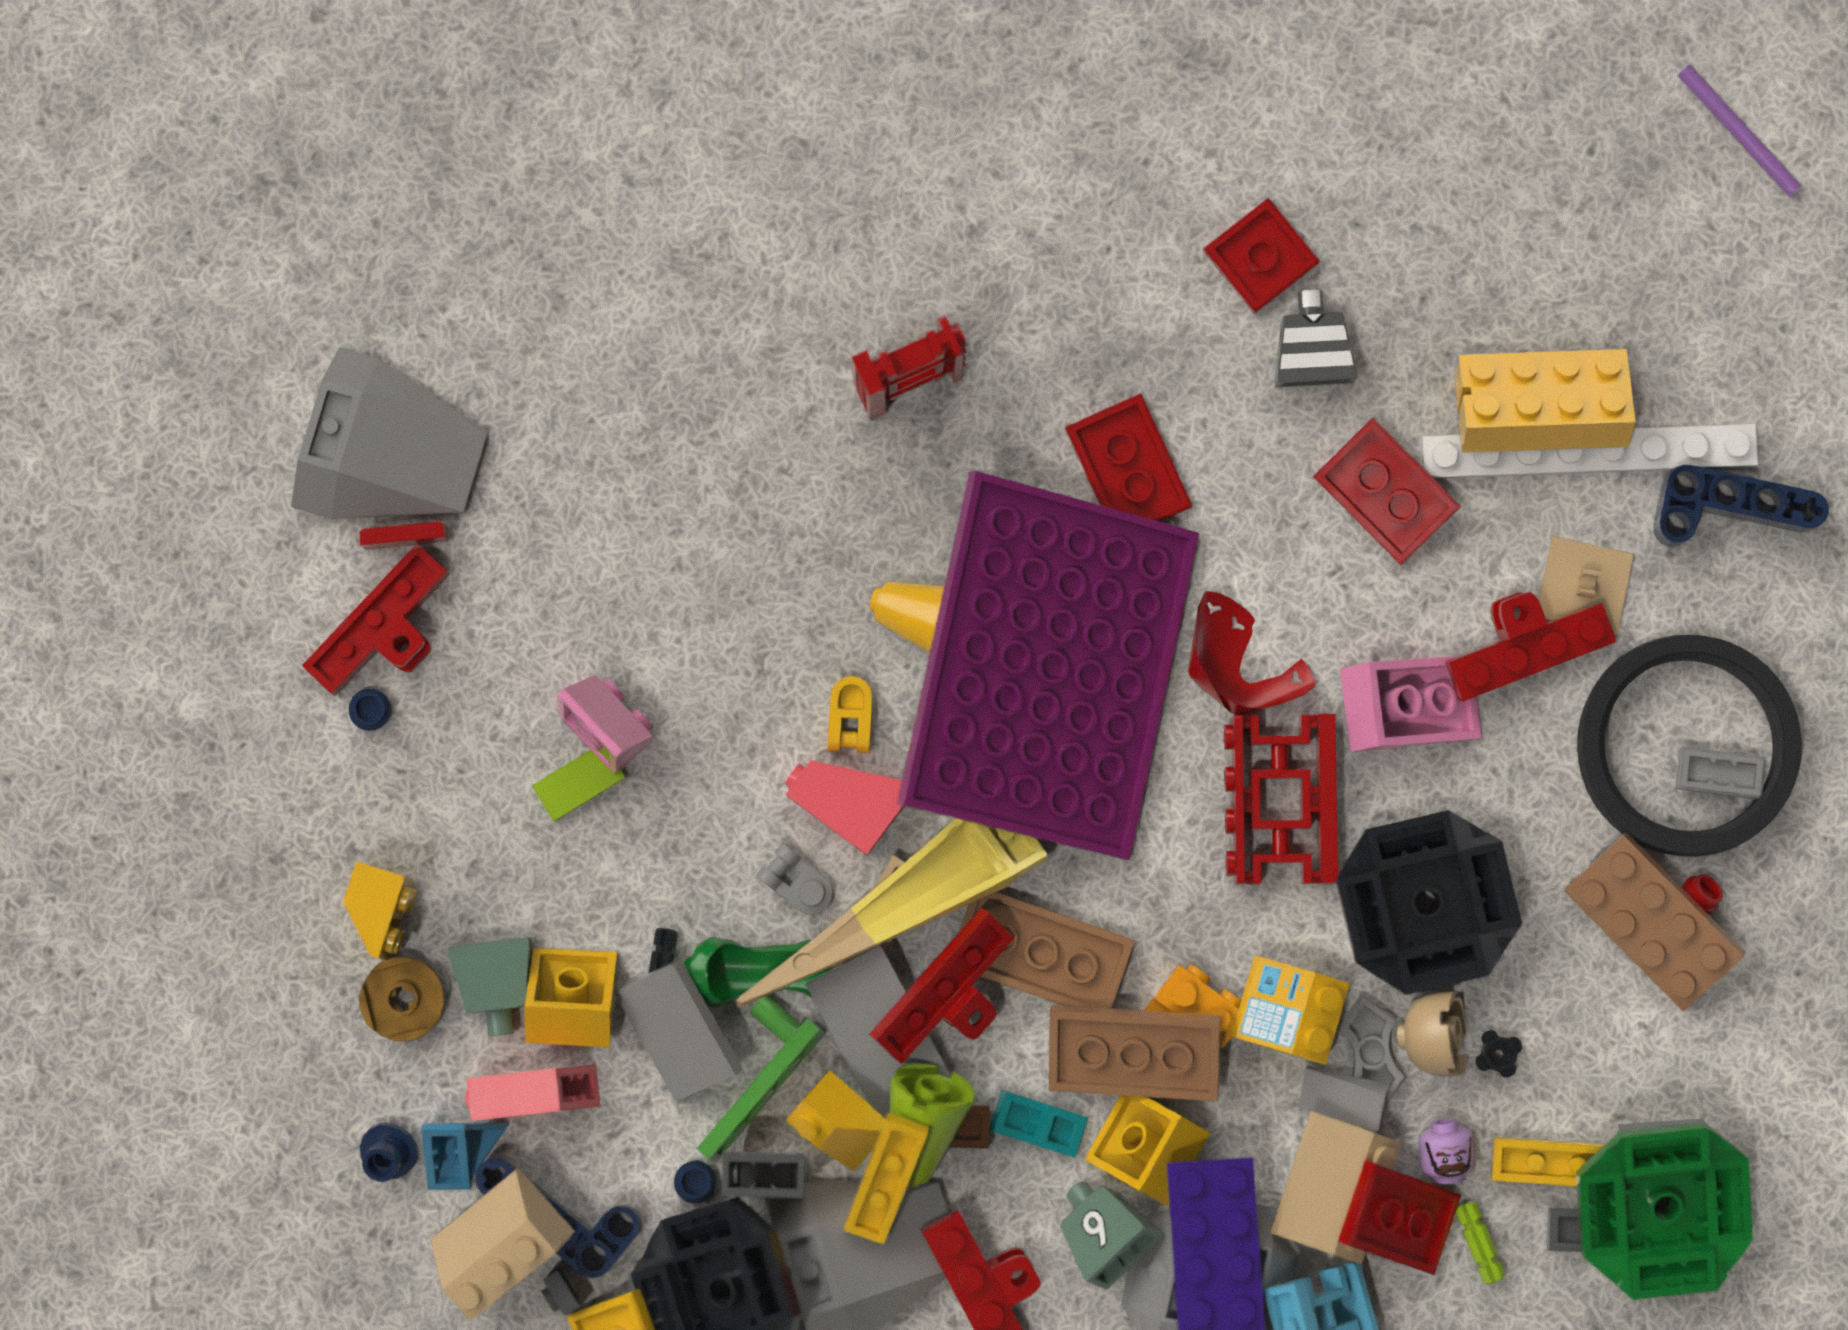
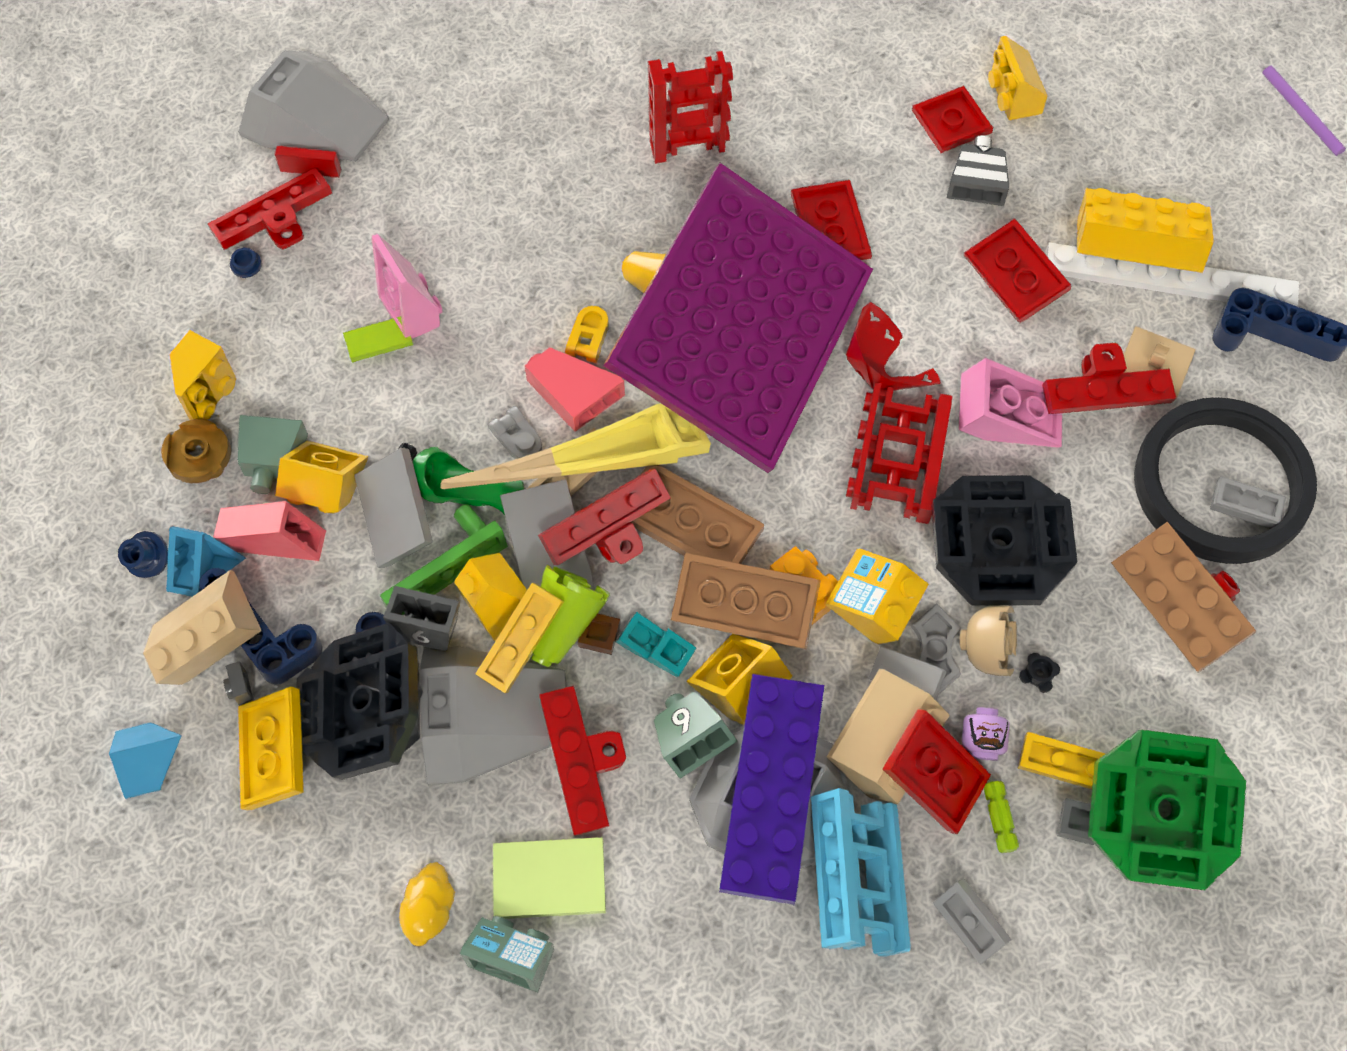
camera: 15 degrees right, 20 degrees down
(1341, 185) = (1016, 81): none -> yellow slope

